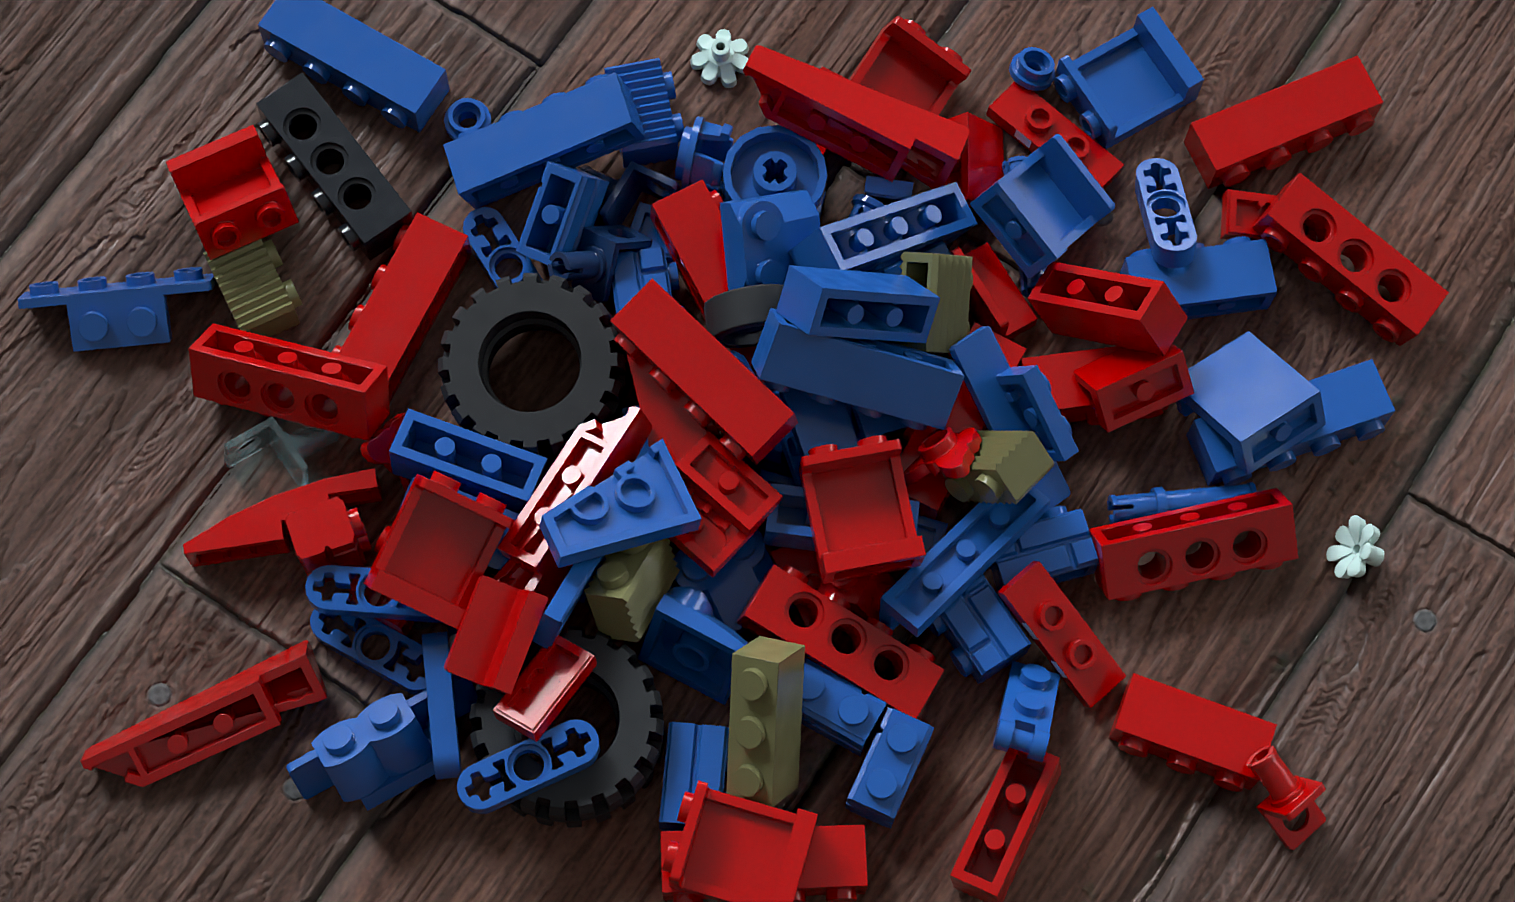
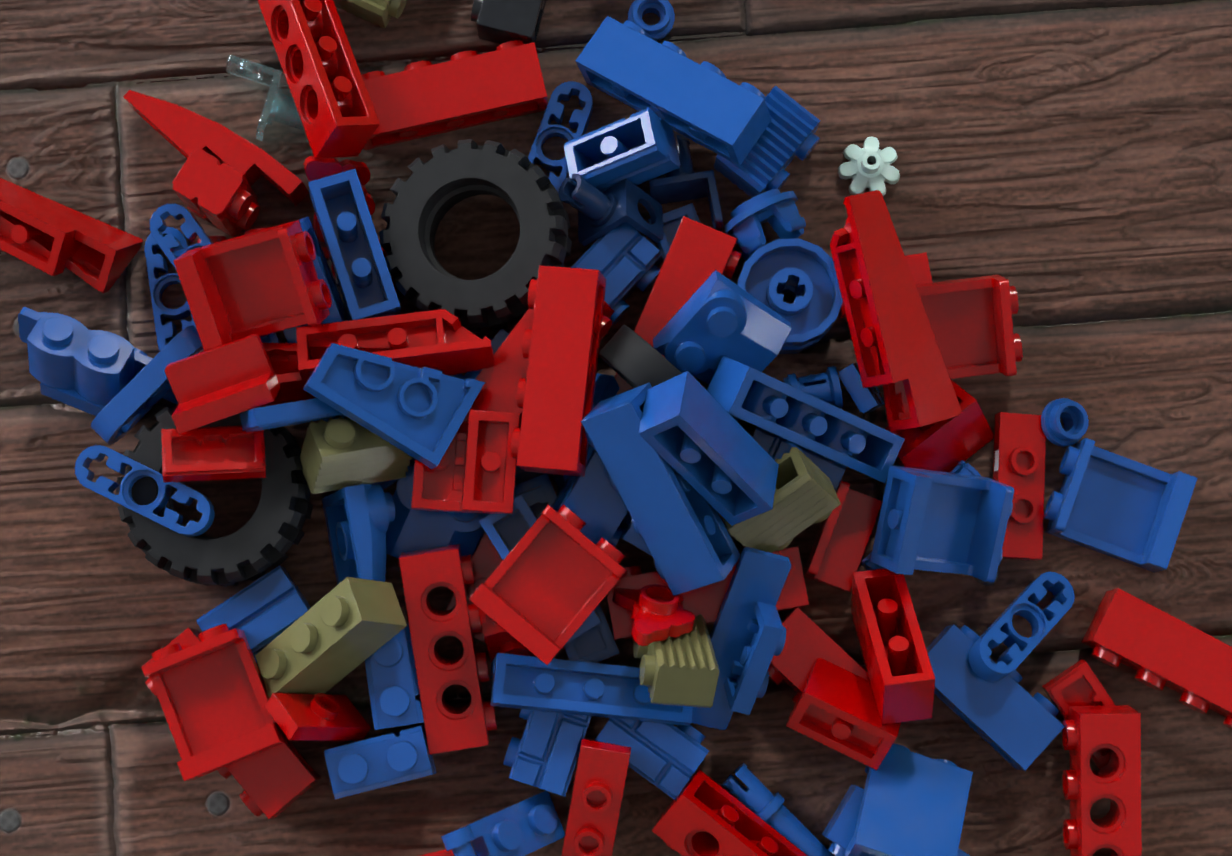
camera: 50 degrees right, 10 degrees up
(816, 783) = (317, 717): none -> red plate

